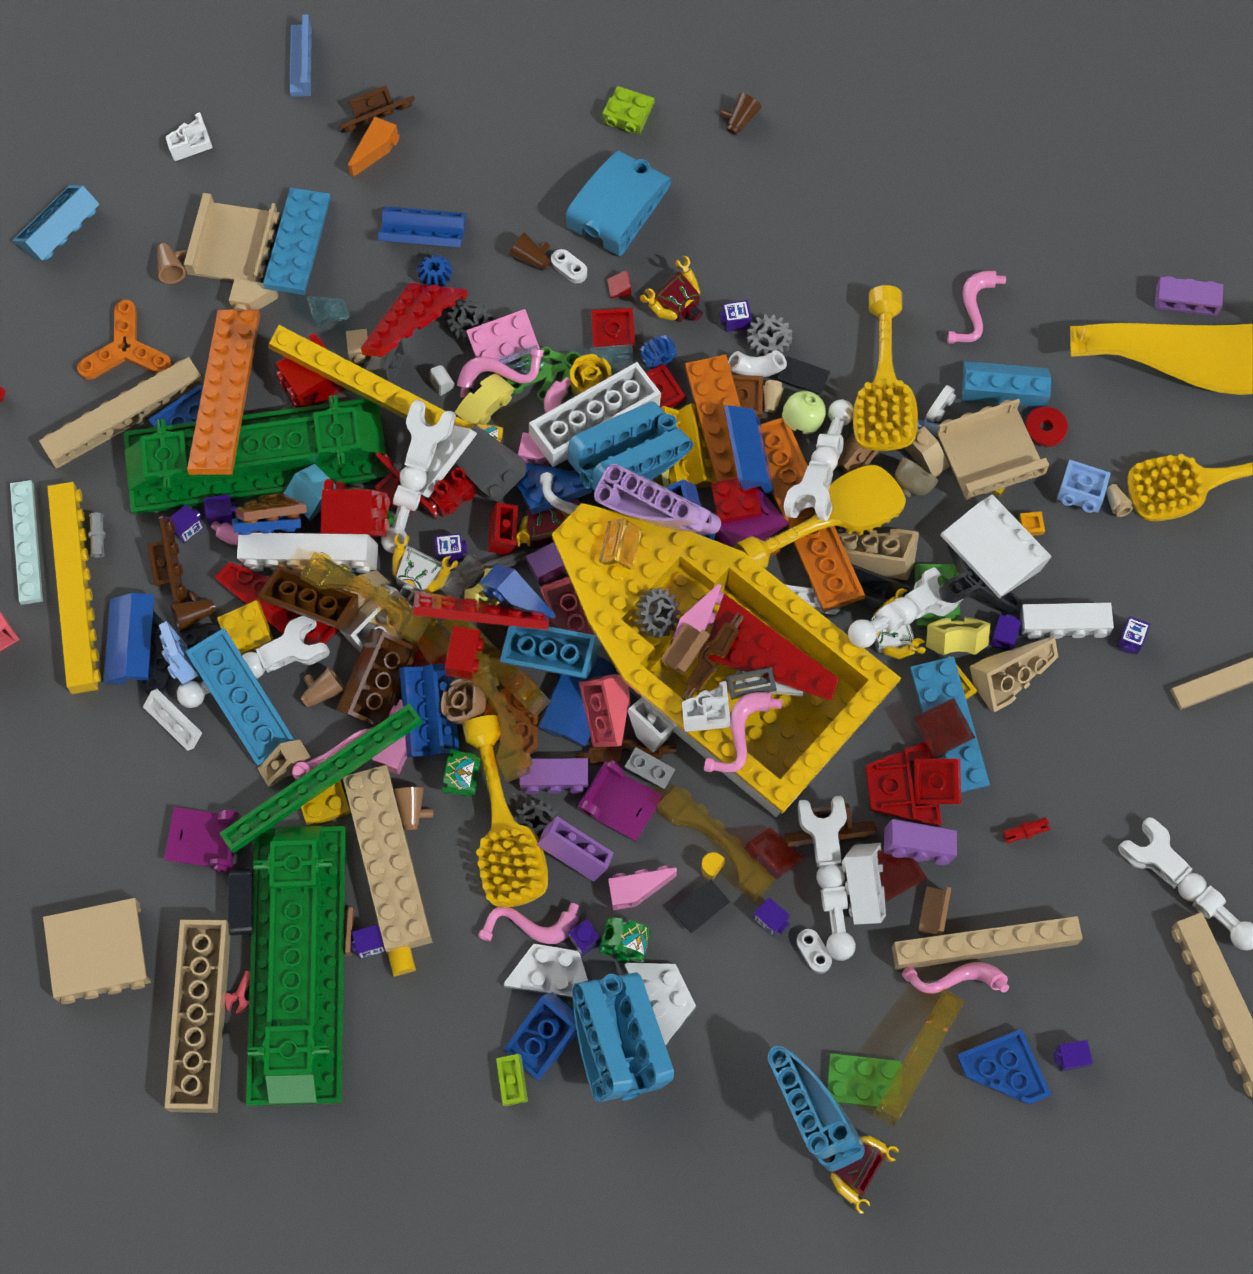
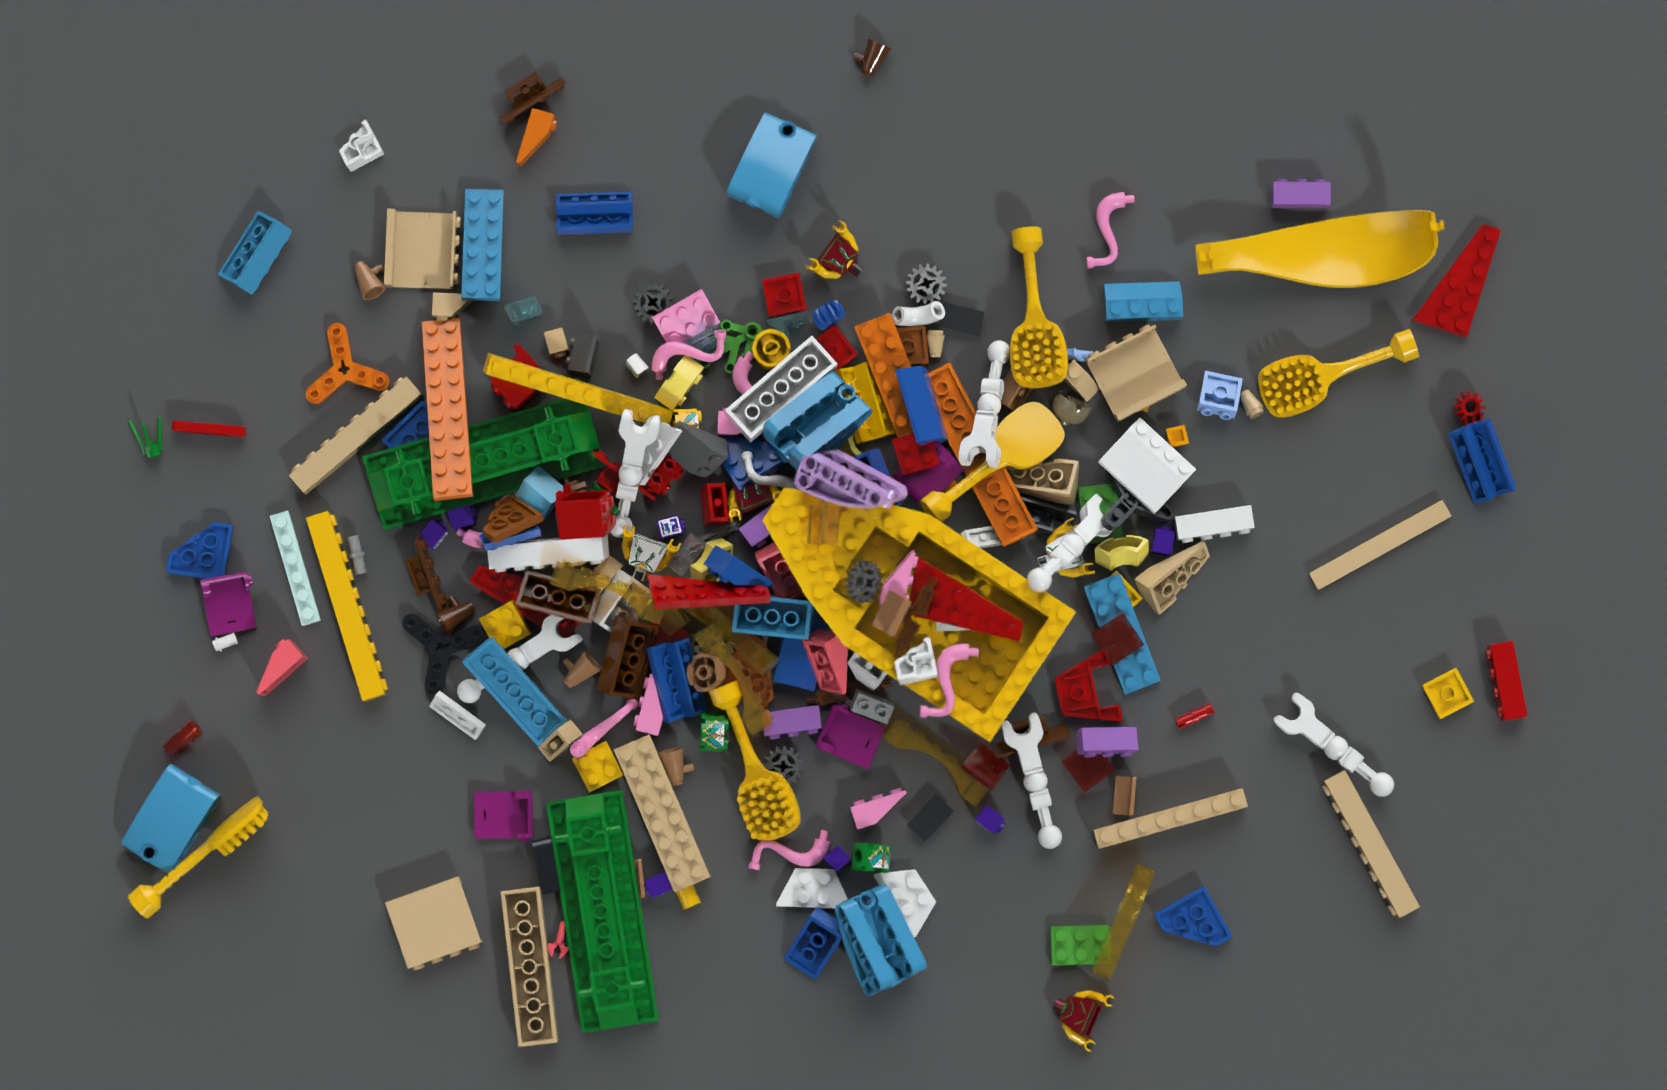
camera: 10 degrees left, 15 degrees up
(128, 638) = (405, 647): blue slope -> none
(174, 653) = (452, 659): light blue plate -> none
(301, 58) = (449, 49): medium blue fence -> none
(321, 778) = (597, 754): green plate -> none
(412, 310) = (601, 310): red wing -> none
(435, 271) = (613, 251): blue gear -> none
(463, 652) = (701, 633): red brick -> none
(512, 1080) = (794, 983): lime plate -> none
(530, 253) = (697, 228): reddish brown piece -> none
(567, 265) = (734, 234): white plate -> none
(575, 849) = (819, 786): medium lavender brick -> none
(619, 285) = (783, 249): slope -> none
(628, 110) = (766, 65): lime plate -> none
(712, 865) = (934, 782): yellow brick -> none
(735, 315) = (893, 267): dark purple brick -> none
(736, 695) = (966, 630): dark grey tile -> none
(804, 412) = (965, 357): yellowish green cylinder -> none
(813, 950) = (1028, 842): white plate -> none
(816, 1112) = (1047, 980): dark azure panel -> none
(864, 884) = (1063, 783): white wedge -> none
(937, 781) = (1116, 685): red plate -> none
(945, 398) = (1083, 339): white plate -> none
(972, 971) = (1164, 841): bright pink animal -> none
(1054, 419) = (1182, 328): red tile -> none
(1073, 1056) = (1248, 902): dark purple brick -> none
(1133, 635) = (1272, 530): dark purple brick -> none

